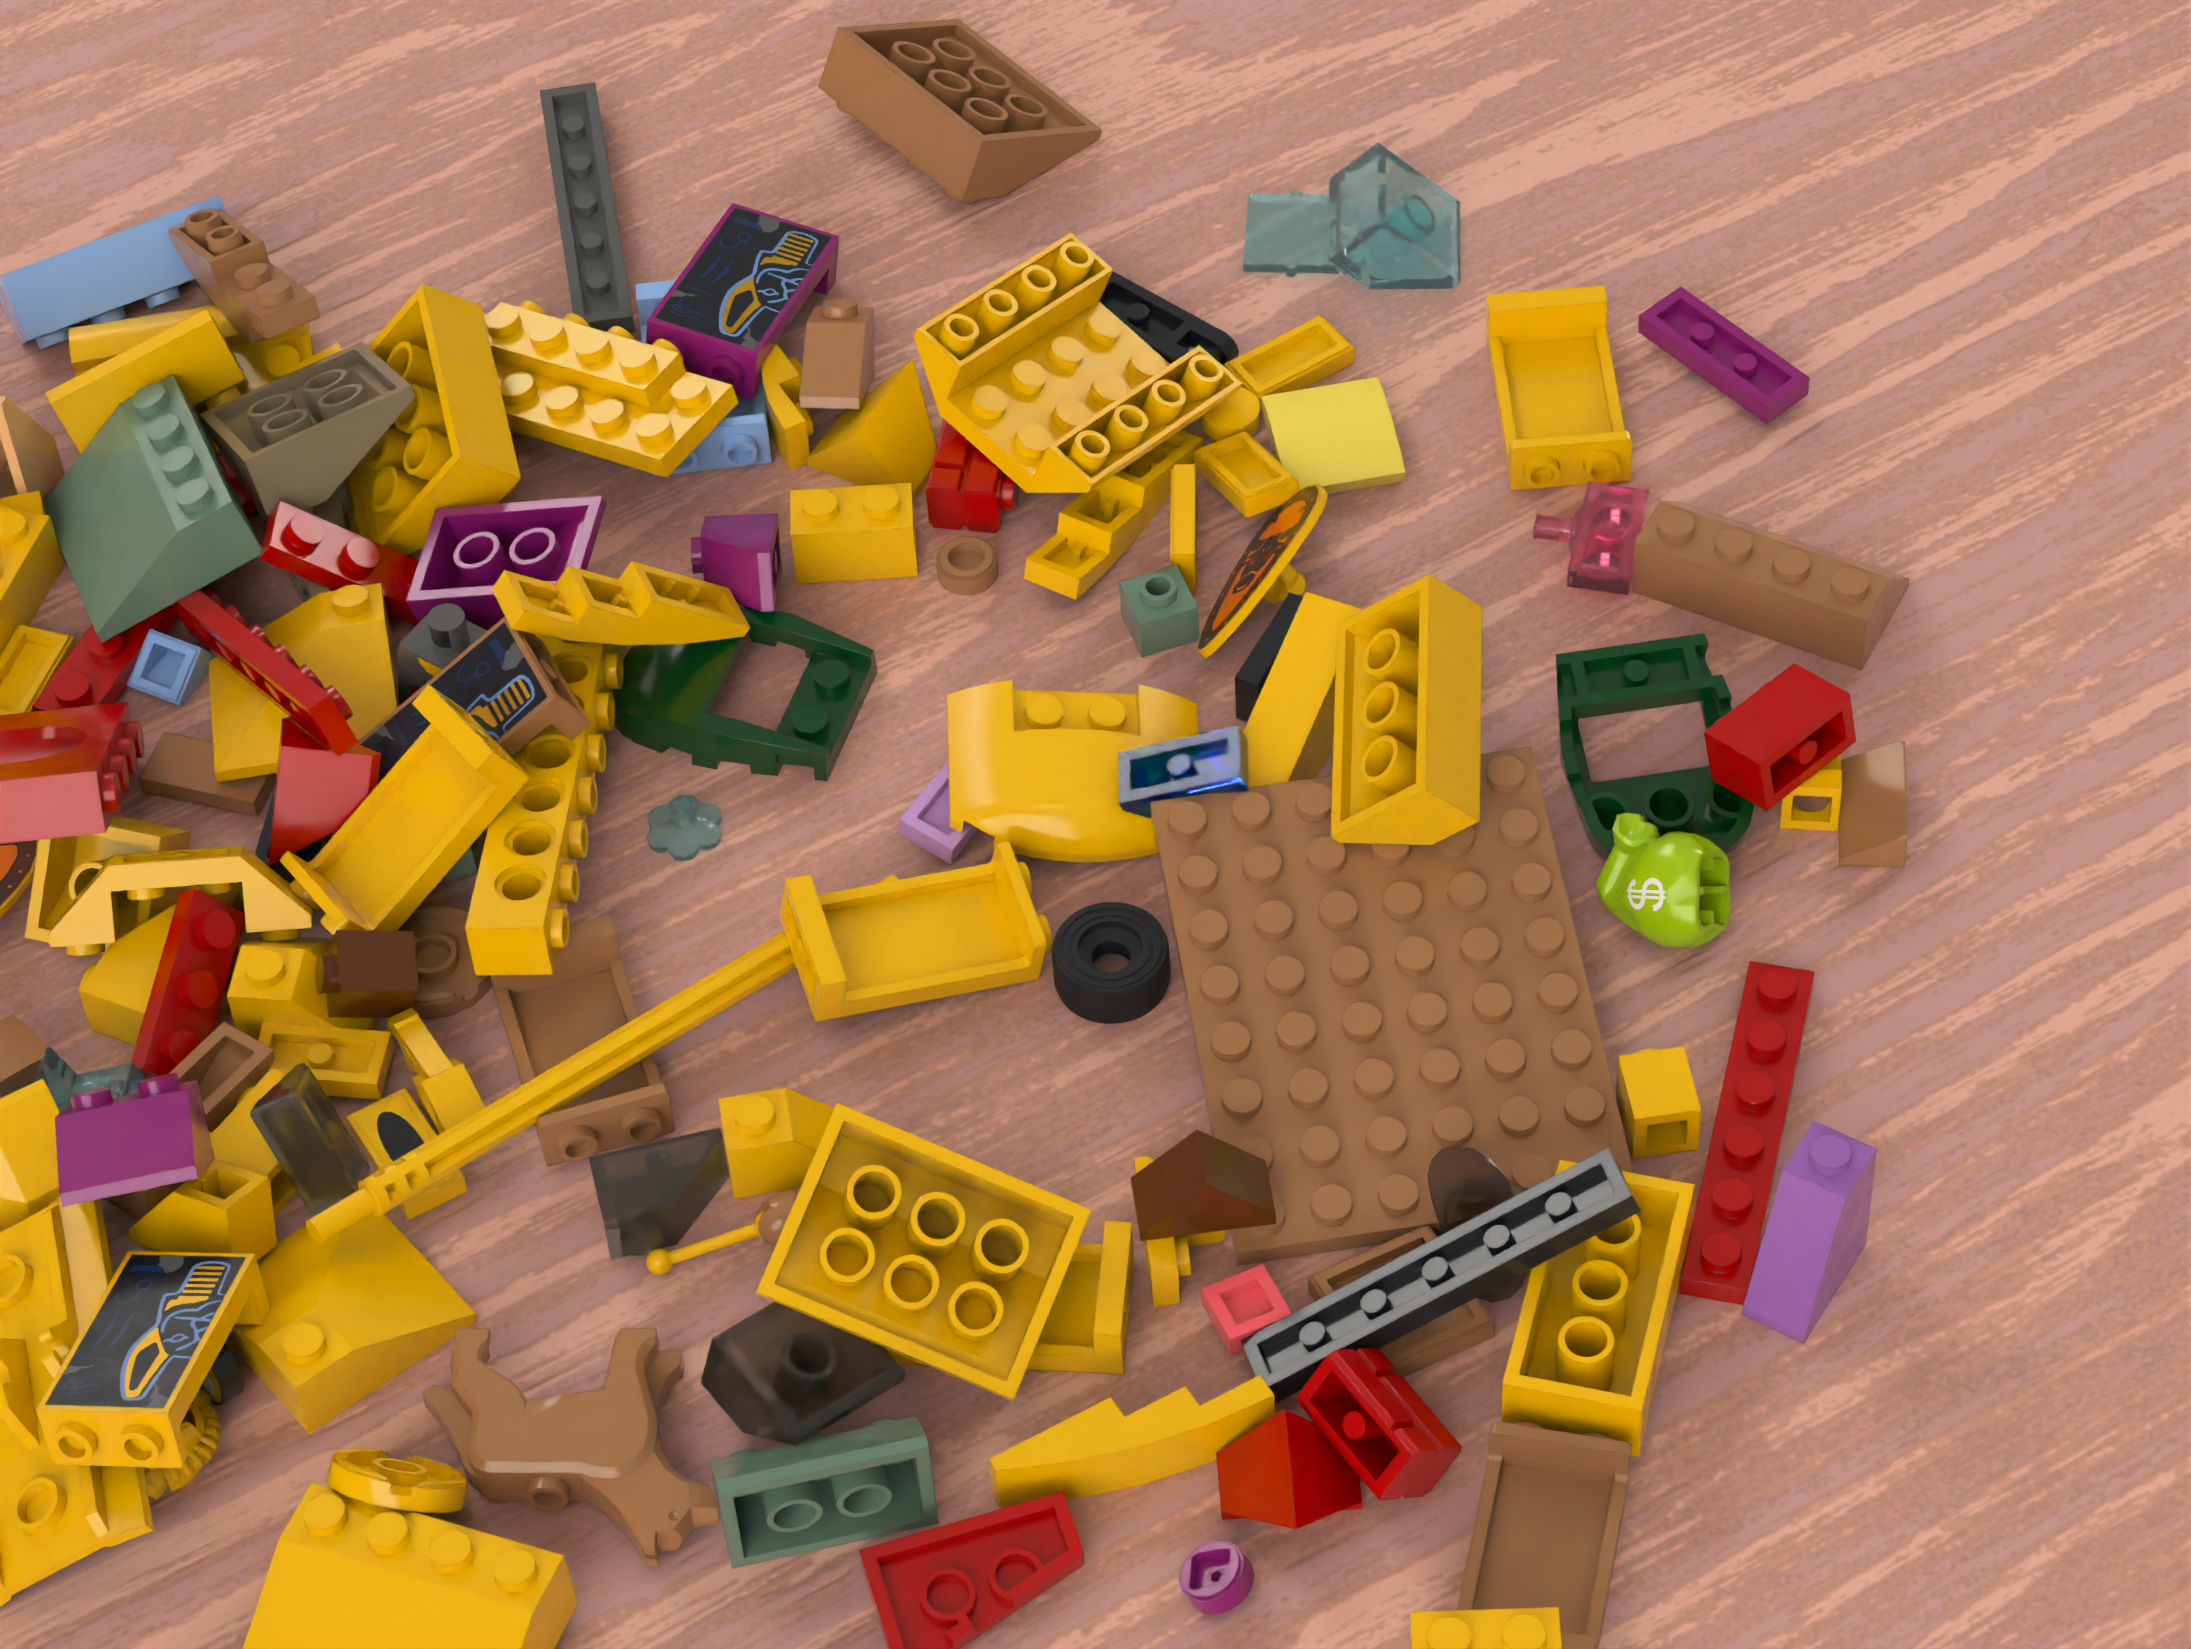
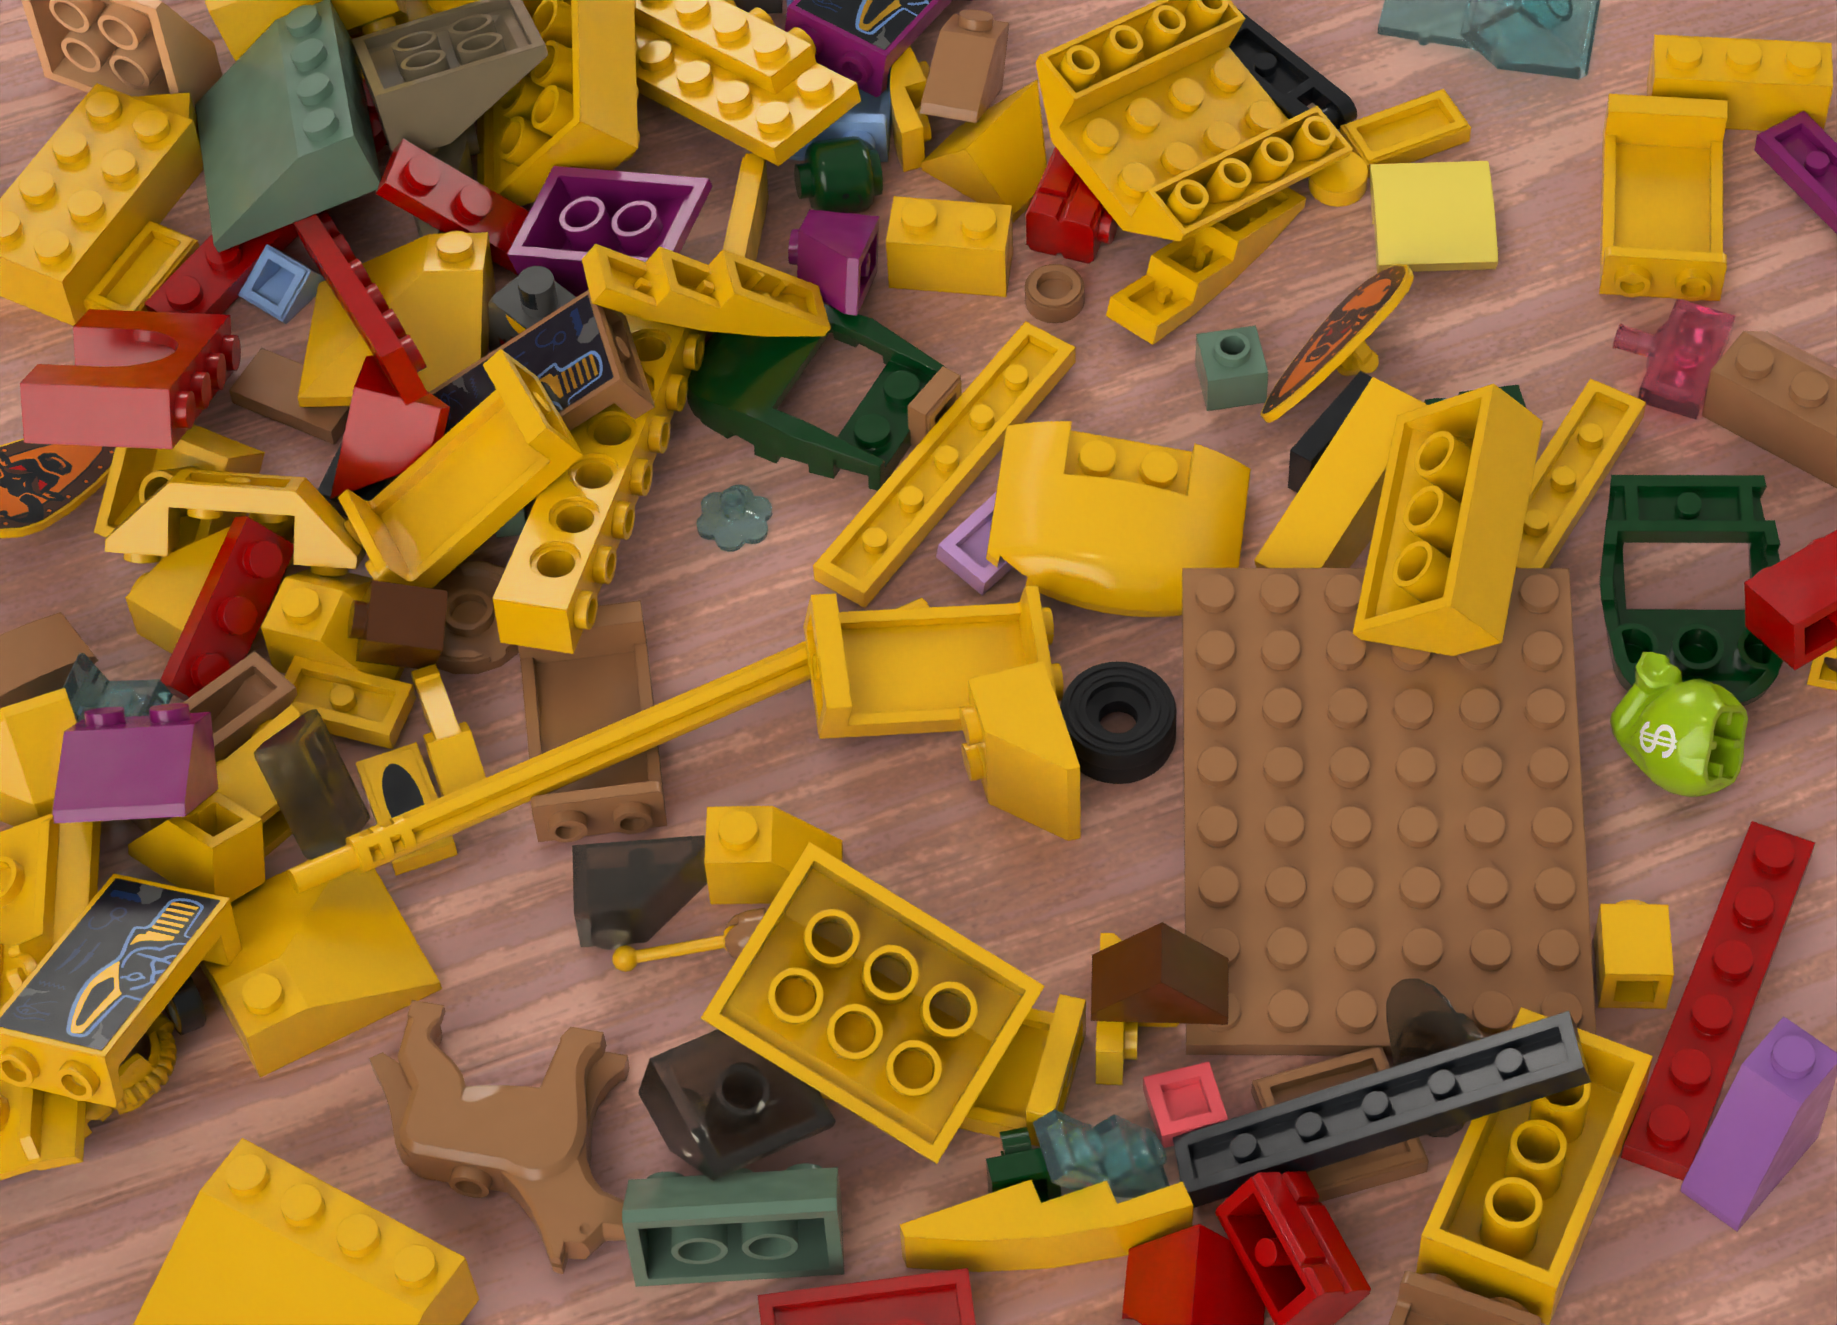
camera: 10 degrees right, 5 degrees up
(398, 1484) = (325, 1152): yellow tile -> none
(641, 519) = (748, 208): none -> yellow tile
(727, 480) = (839, 175): none -> dark green head
(869, 692) = (932, 403): none -> medium nougat tile
(888, 743) = (943, 465): none -> yellow plate
(1024, 998) = (1023, 749): none -> yellow slope
(1097, 1384) = (1020, 1164): none -> dark green tile
(1183, 768) = (1221, 539): clear blue slope -> none
(1183, 1358) = (1110, 1151): none -> clear light blue slope
(1184, 523) = (1271, 284): yellow tile -> none
(1245, 474) = (1341, 241): yellow tile -> none
(1519, 653) = (1575, 468): none -> yellow plate
(1631, 259) = (1757, 76): none -> yellow brick

